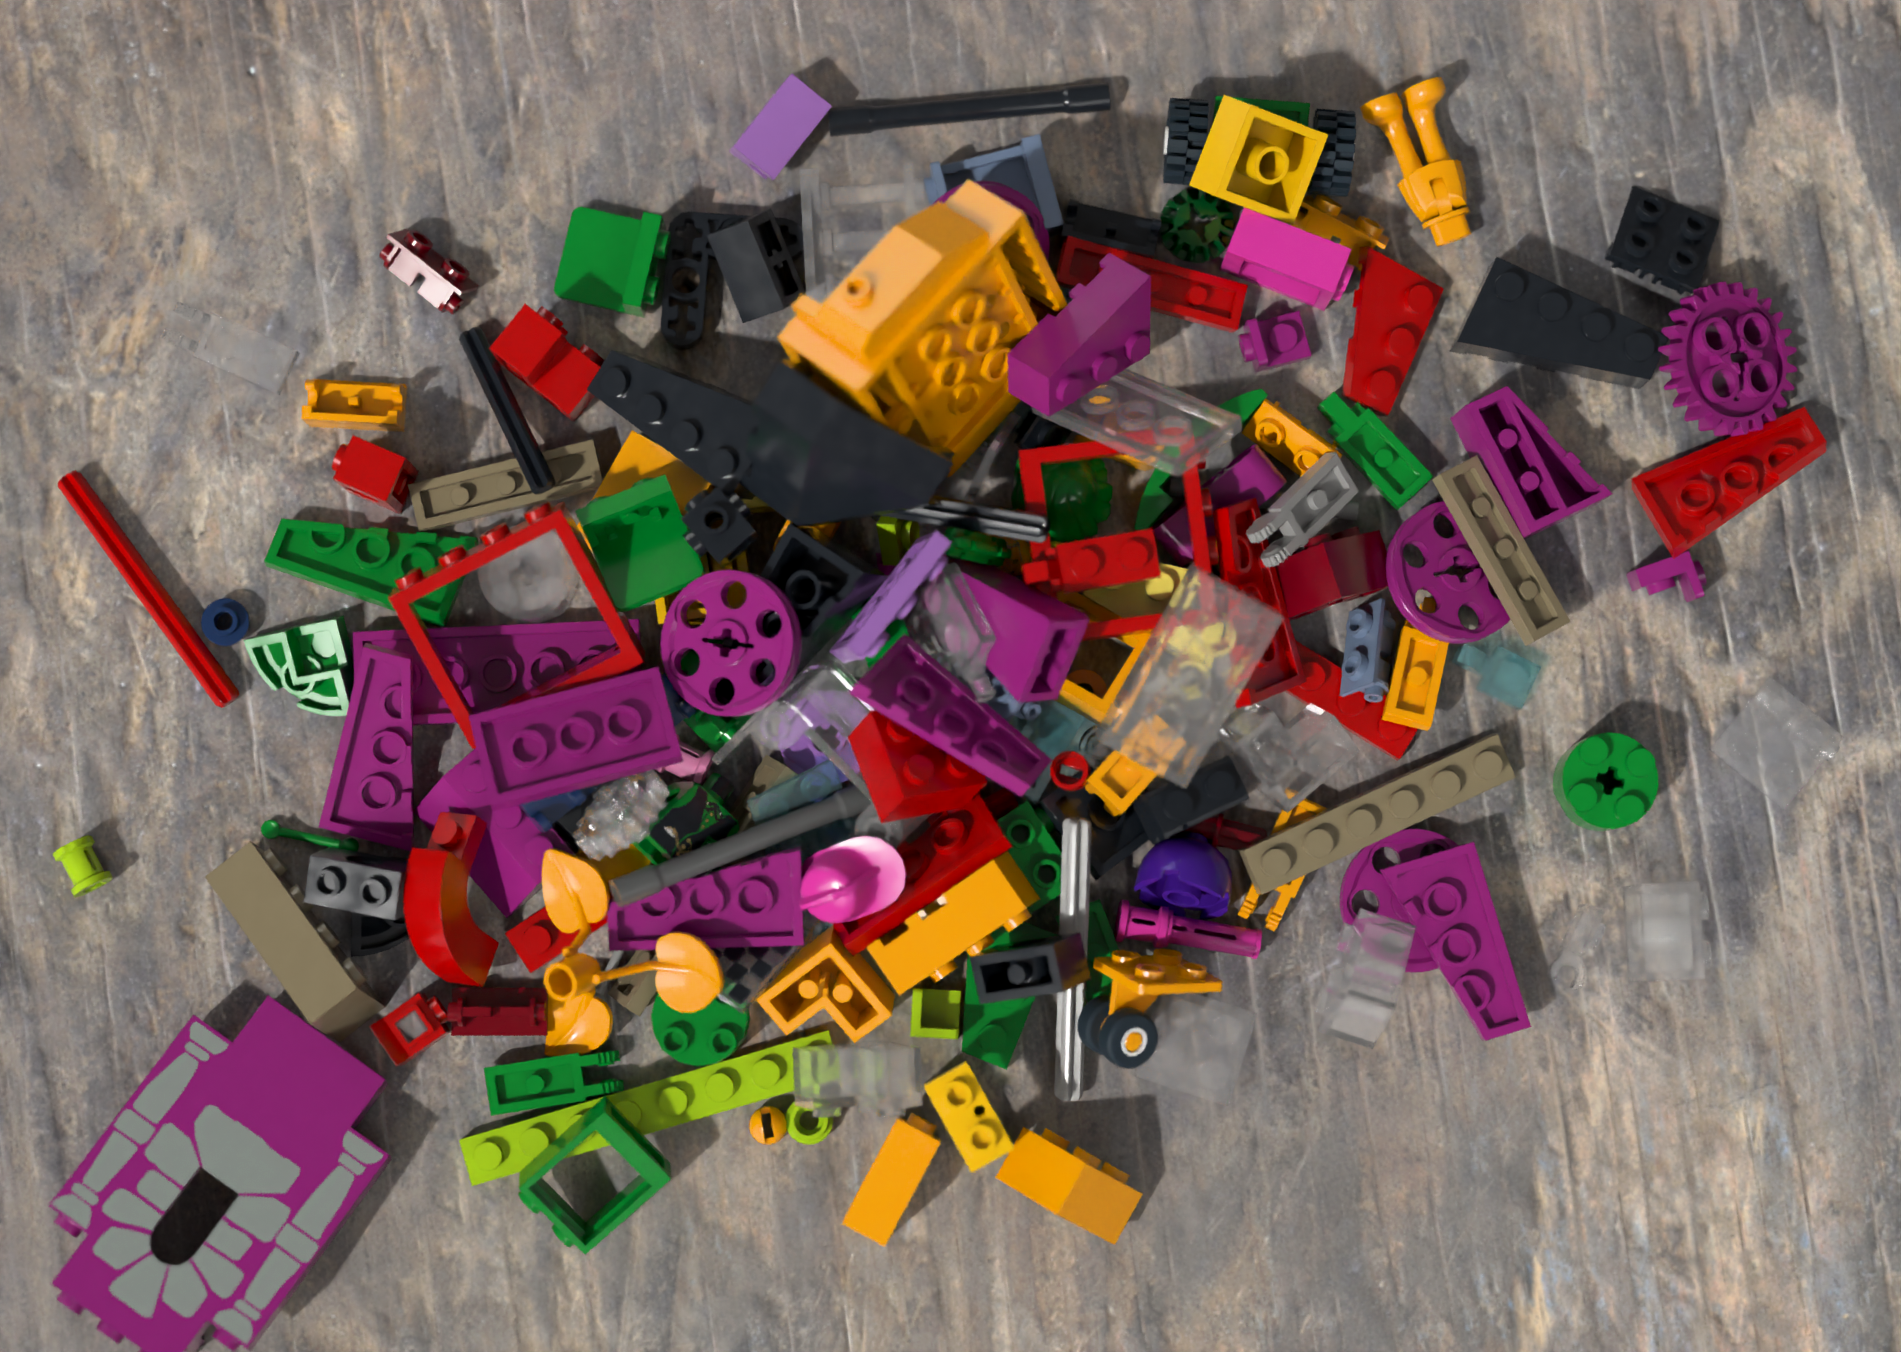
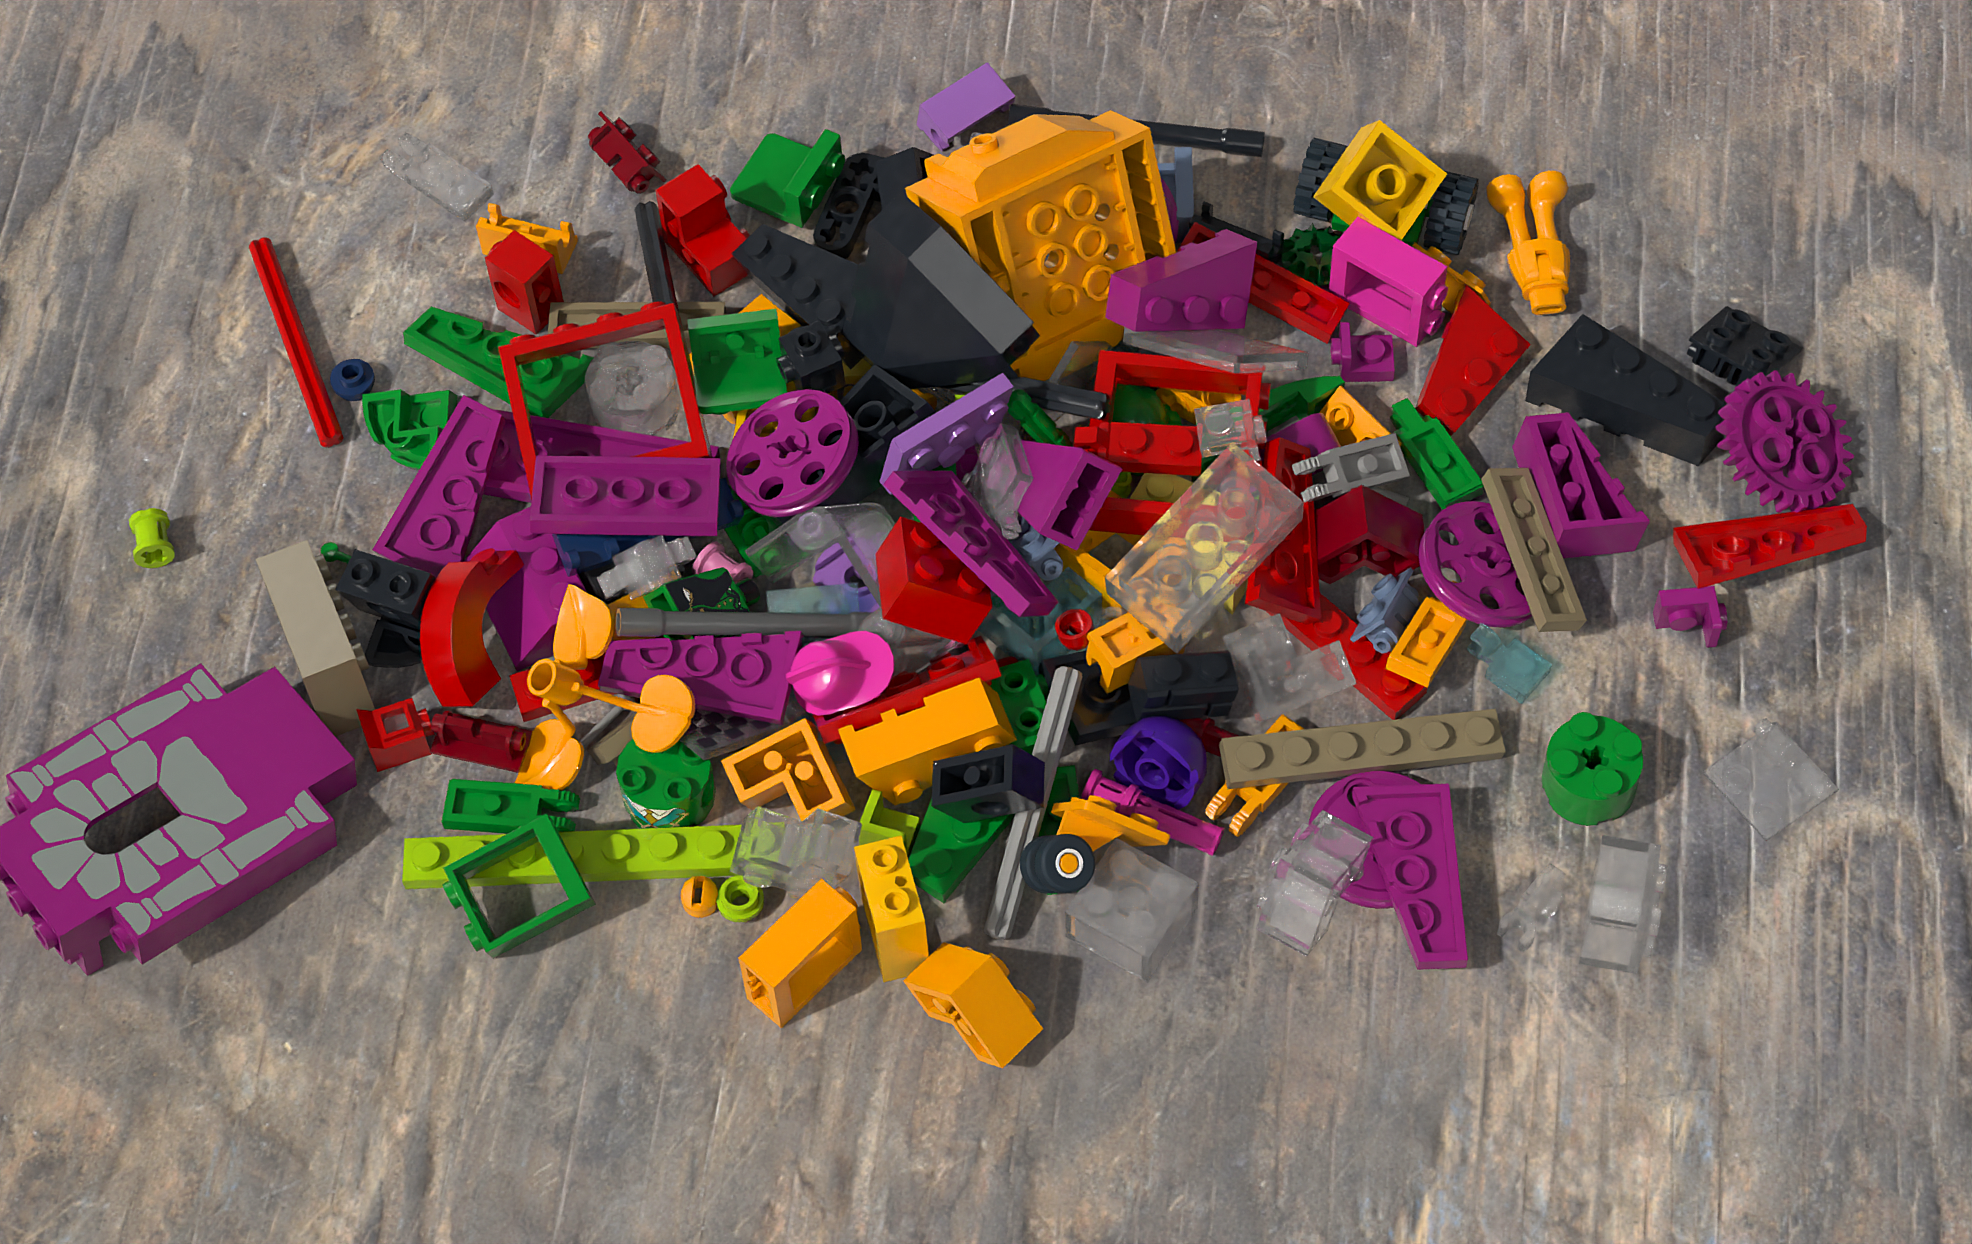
camera: 20 degrees right, 25 degrees down
(1181, 531) = (1229, 423): none -> clear bracket

